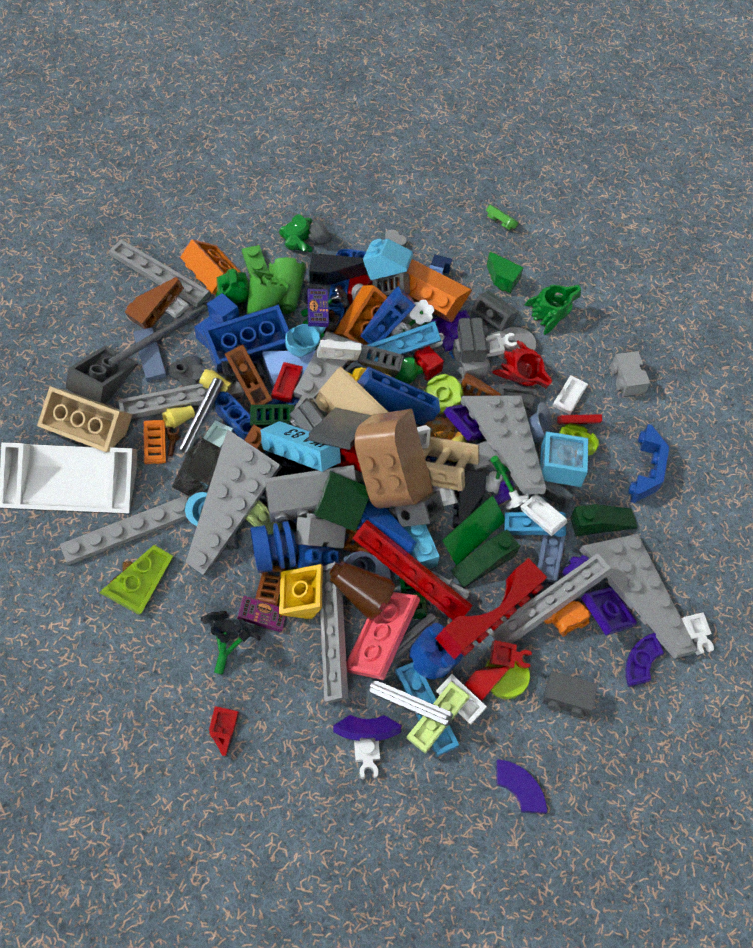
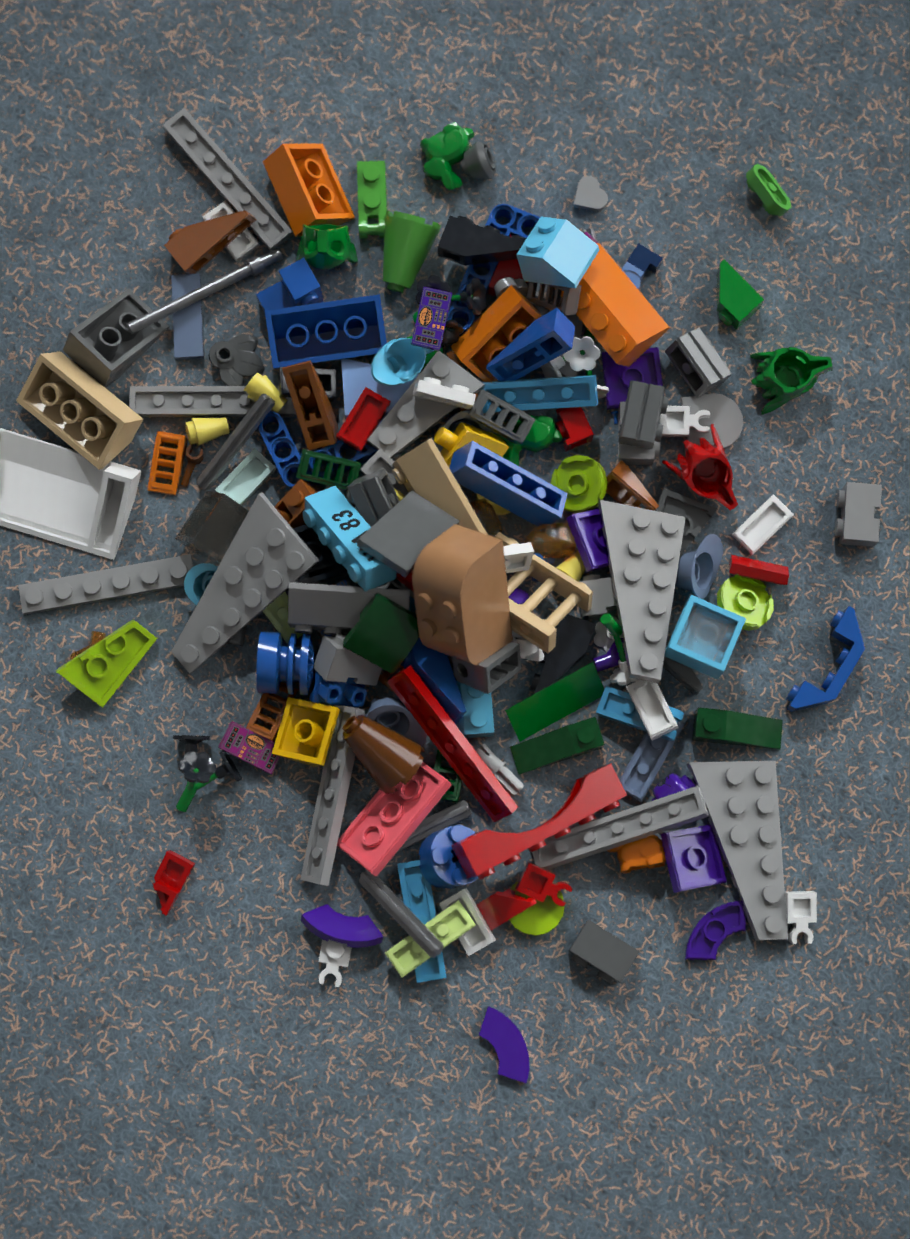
camera: 20 degrees right, 20 degrees up
(264, 291) = (367, 265): bright green cone -> none

